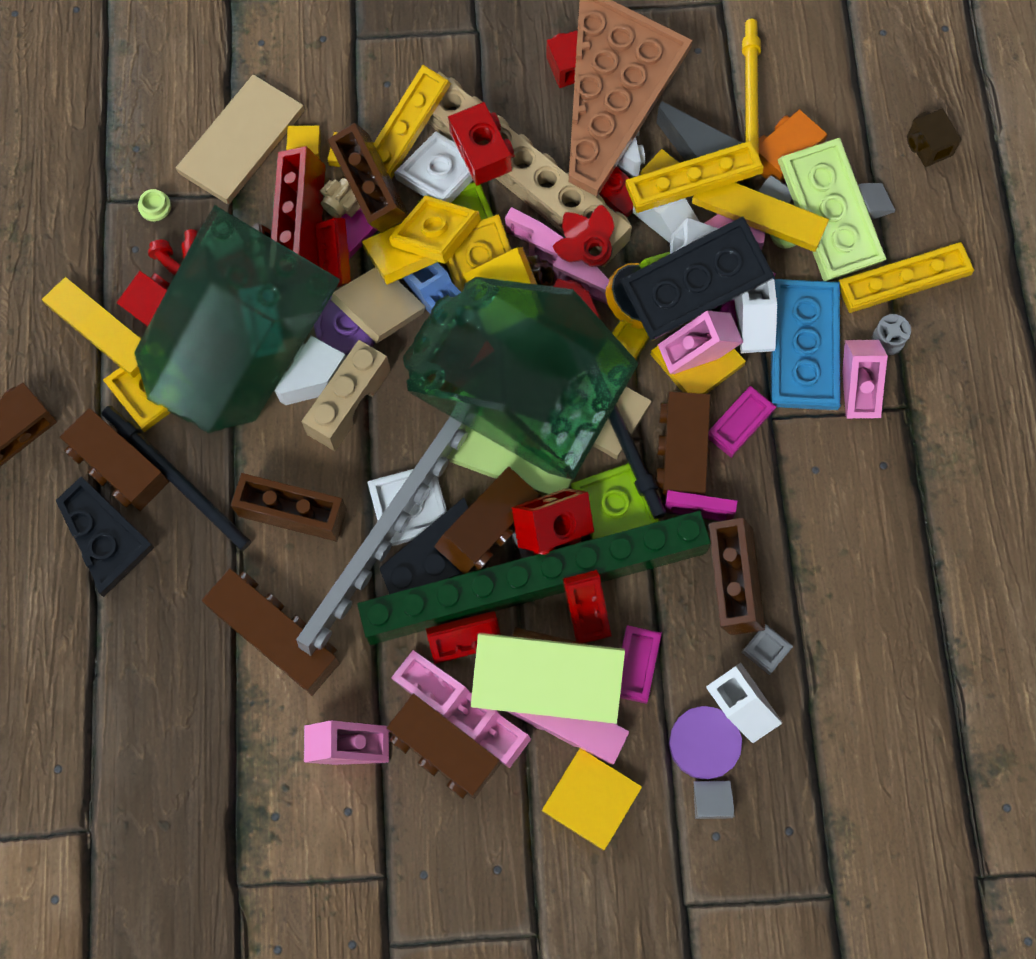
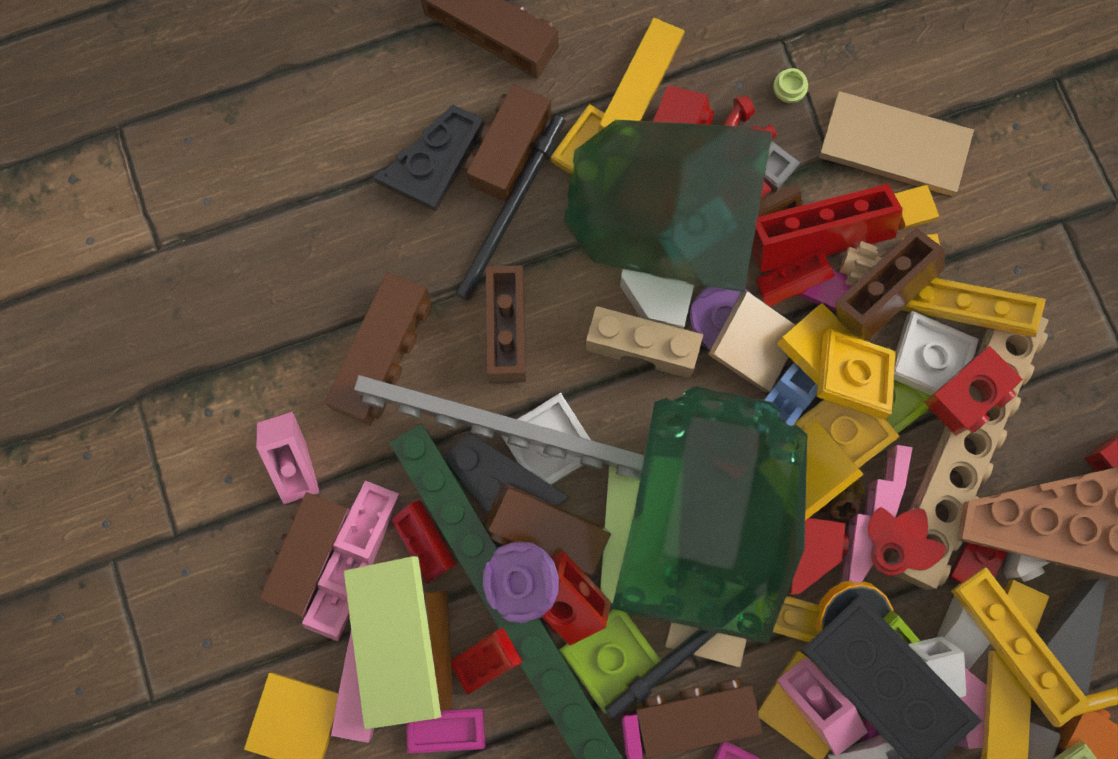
camera: 75 degrees right, 5 degrees up
(528, 545) = (521, 582): none -> medium lavender tile

